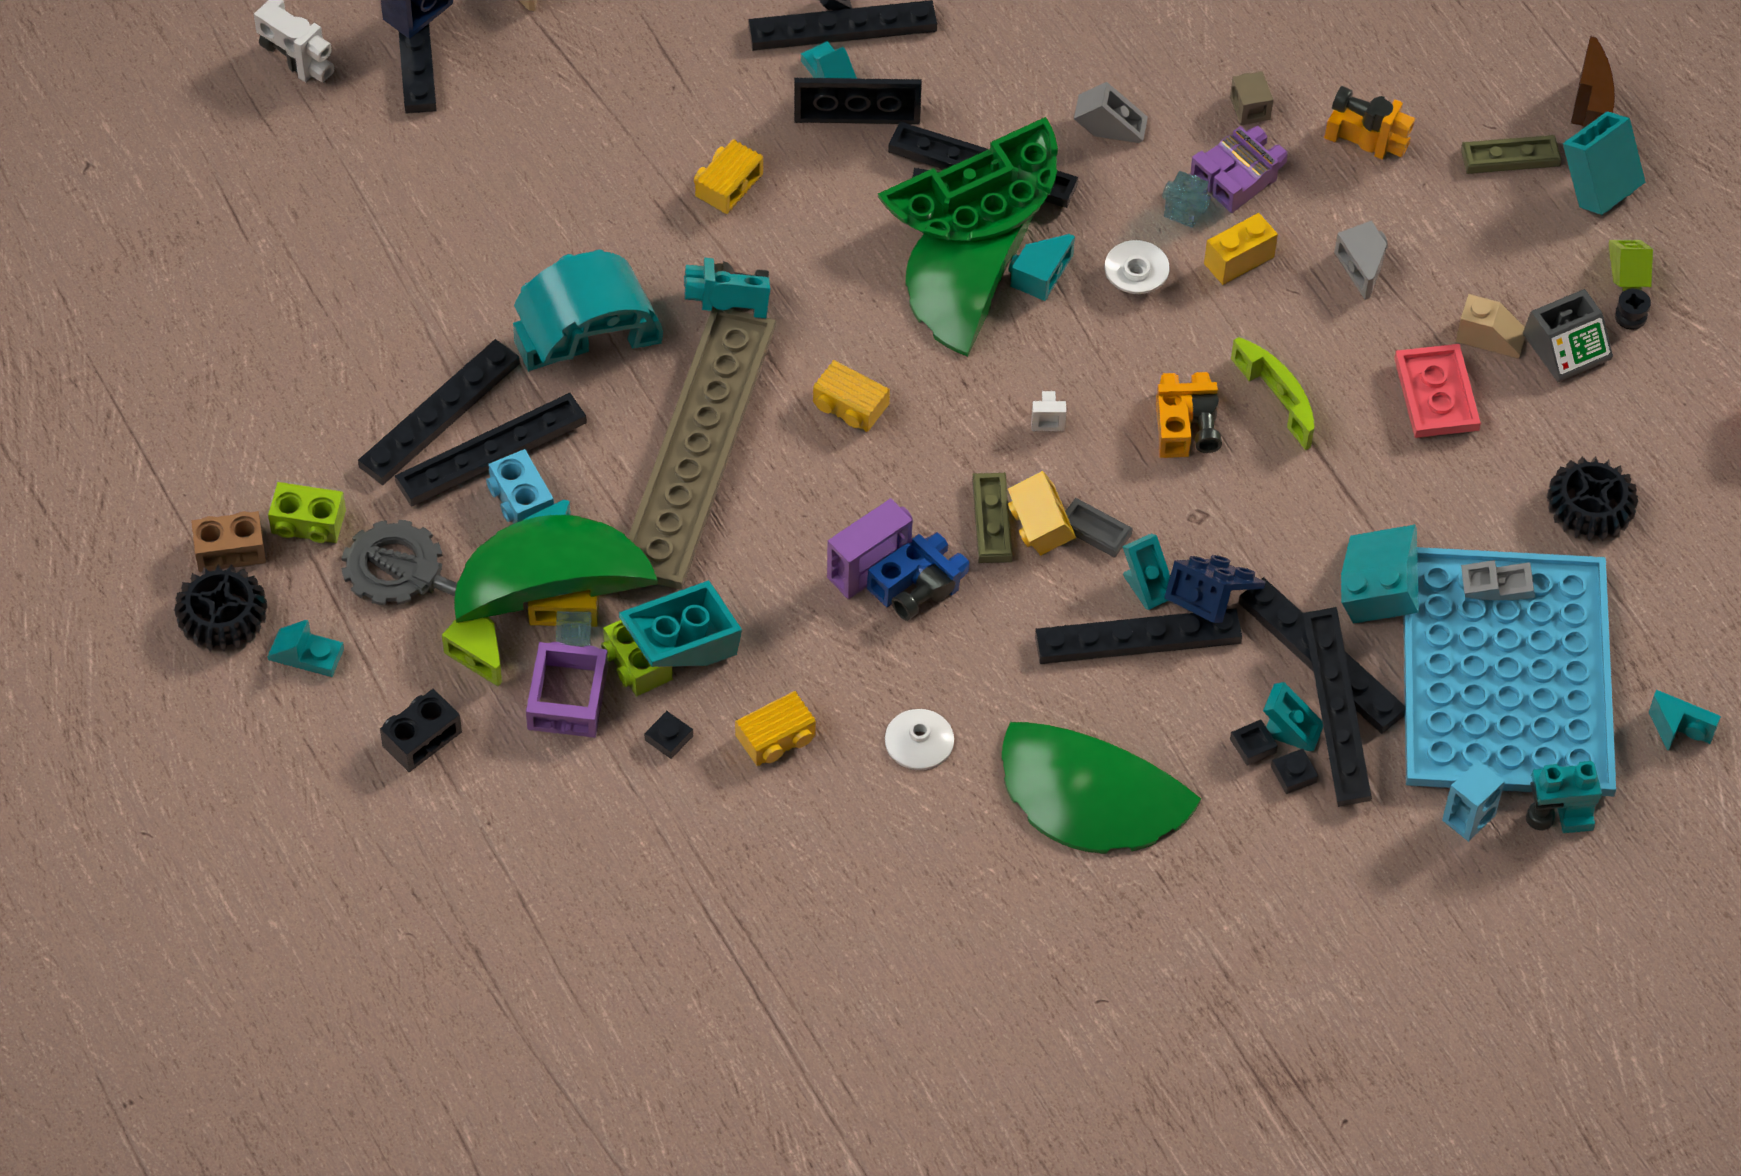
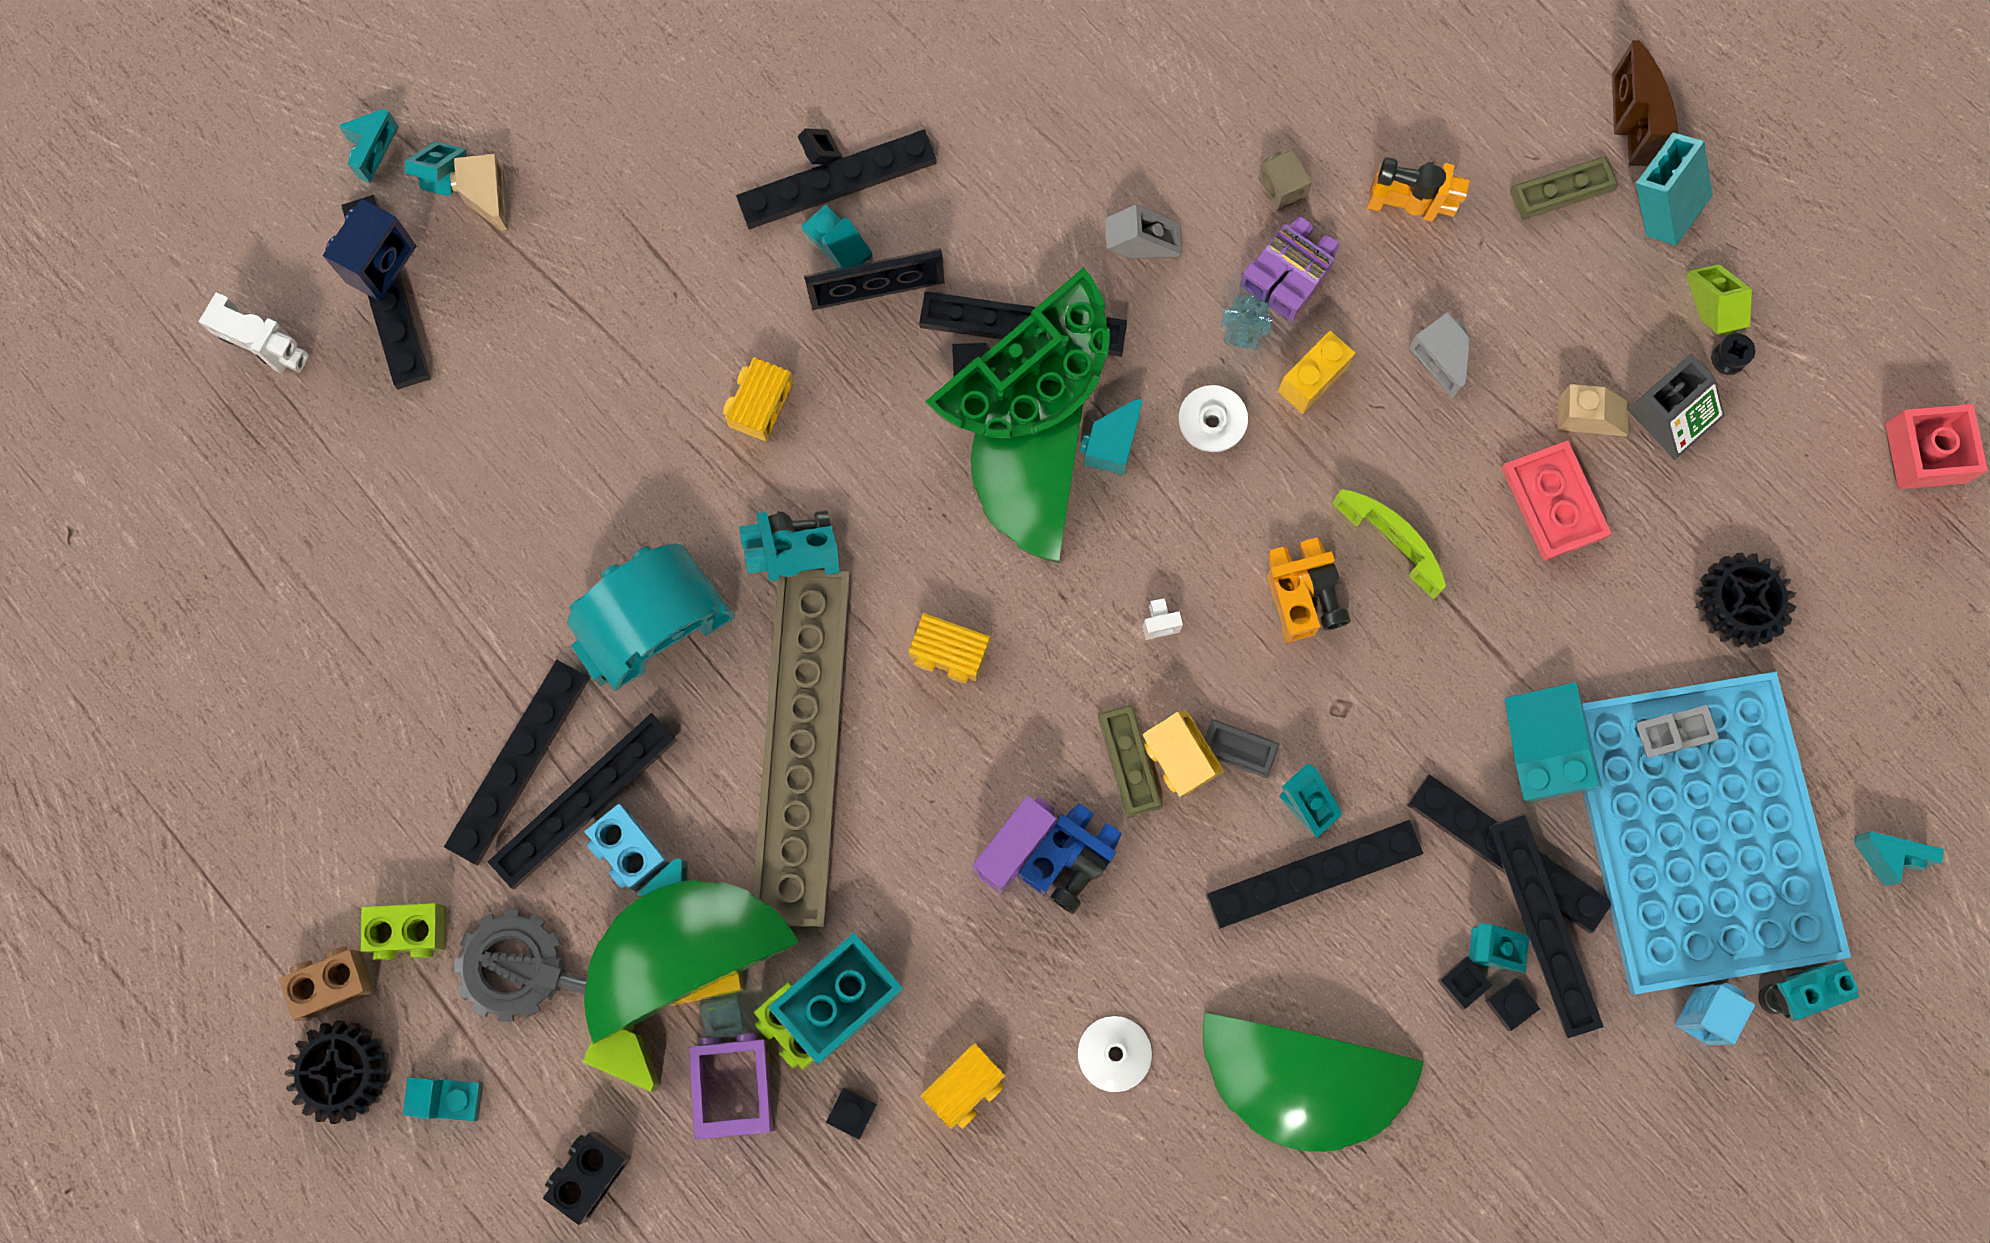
camera: 10 degrees left, 20 degrees up
(1206, 585) = (1381, 805): dark blue bracket -> none

